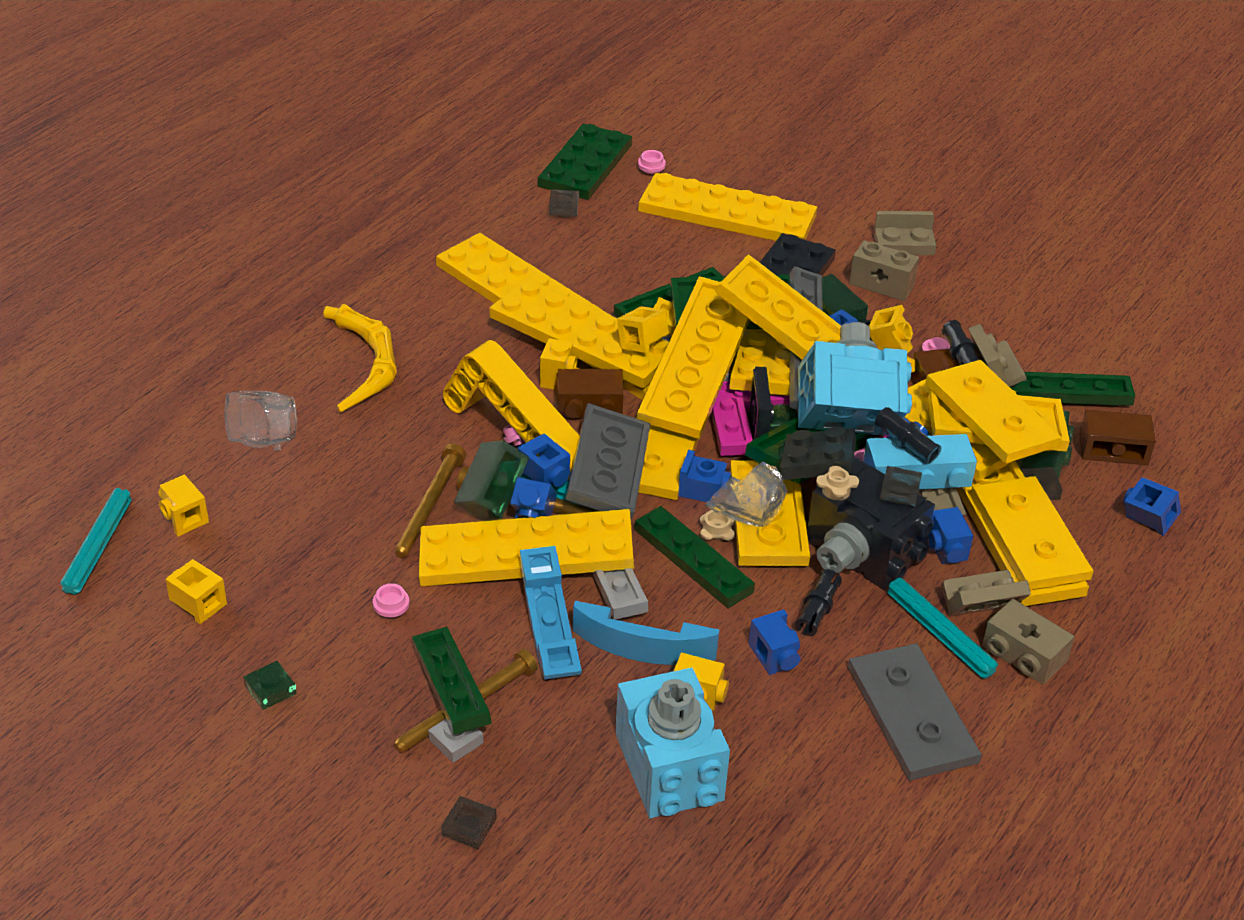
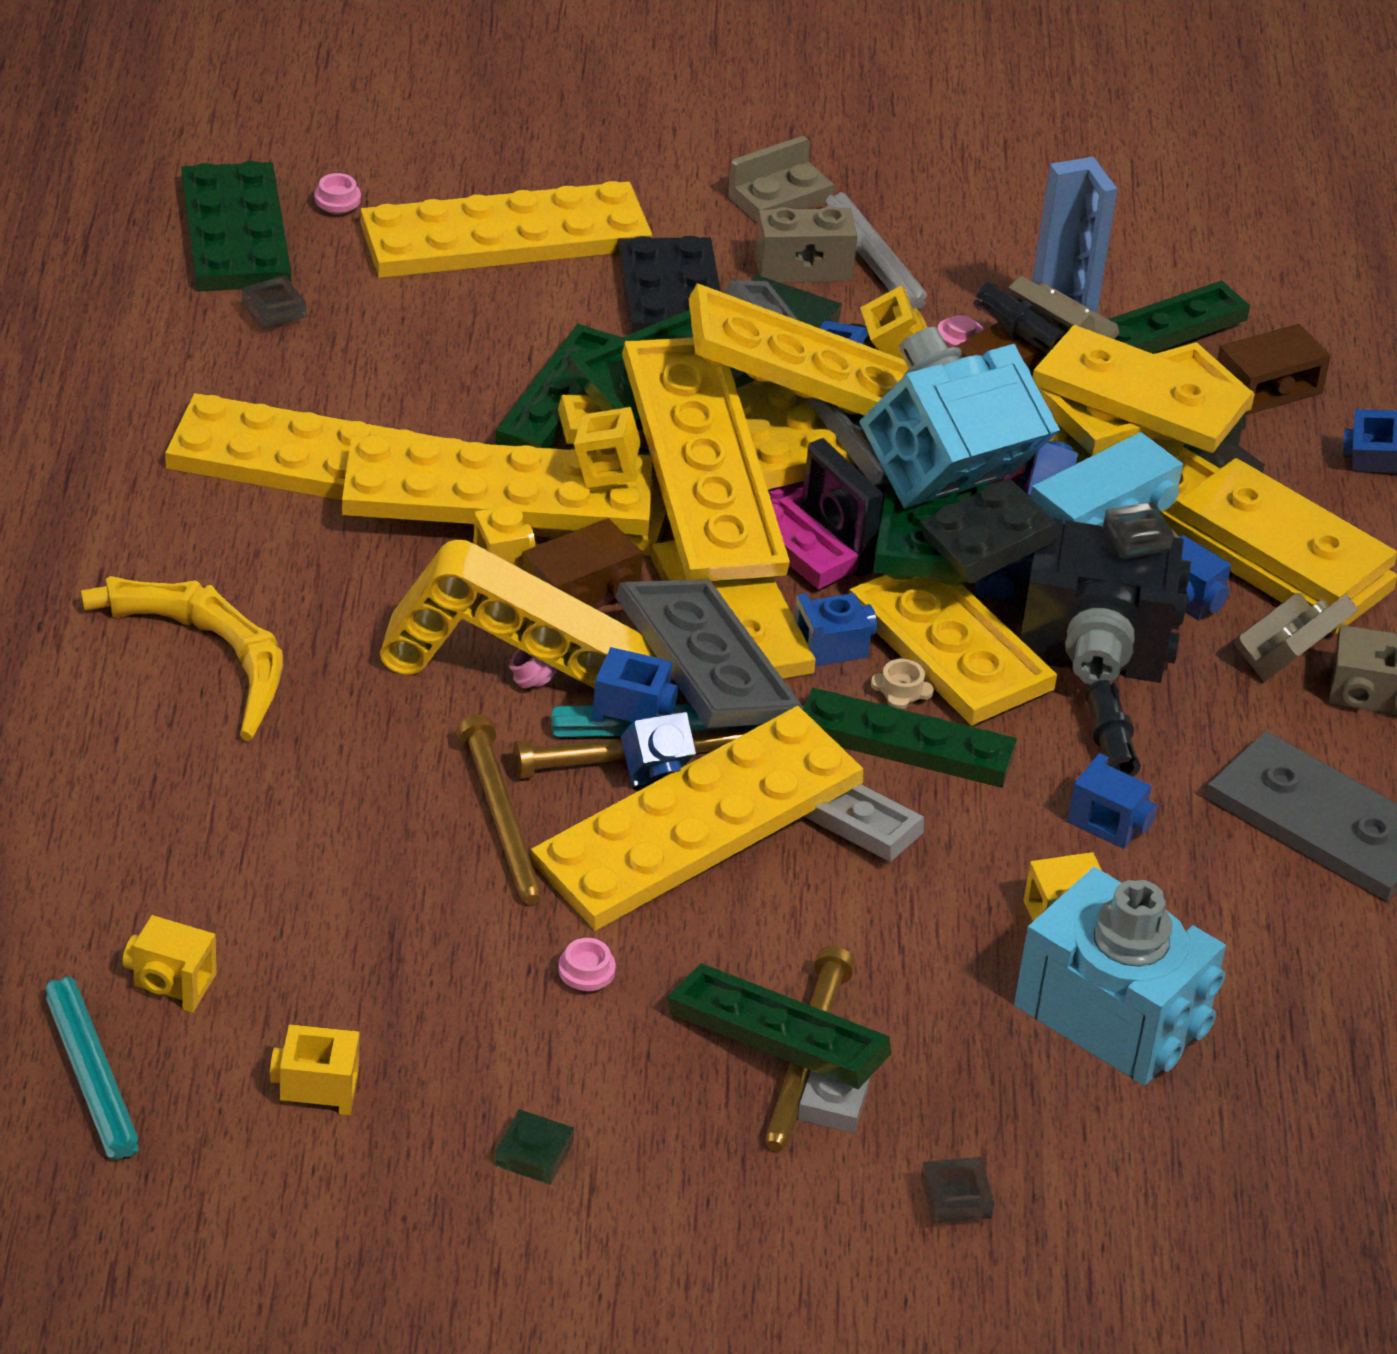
camera: 35 degrees left, 0 degrees up
(260, 418) = (169, 793): clear helmet -> none
(491, 480) = (588, 741): clear green brick -> none
(548, 613) = (805, 893): dark azure slope -> none
(640, 641) = (945, 877): dark azure slope -> none
(752, 499) = (935, 622): clear helmet -> none
(837, 483) = (1058, 558): tan plate -> none
(908, 435) = (1087, 460): black pin -> none
(928, 290) = (879, 255): none -> light grey axle
(942, 628) = (1272, 699): teal axle -> none
(1022, 306) = (1075, 230): none -> medium blue fence

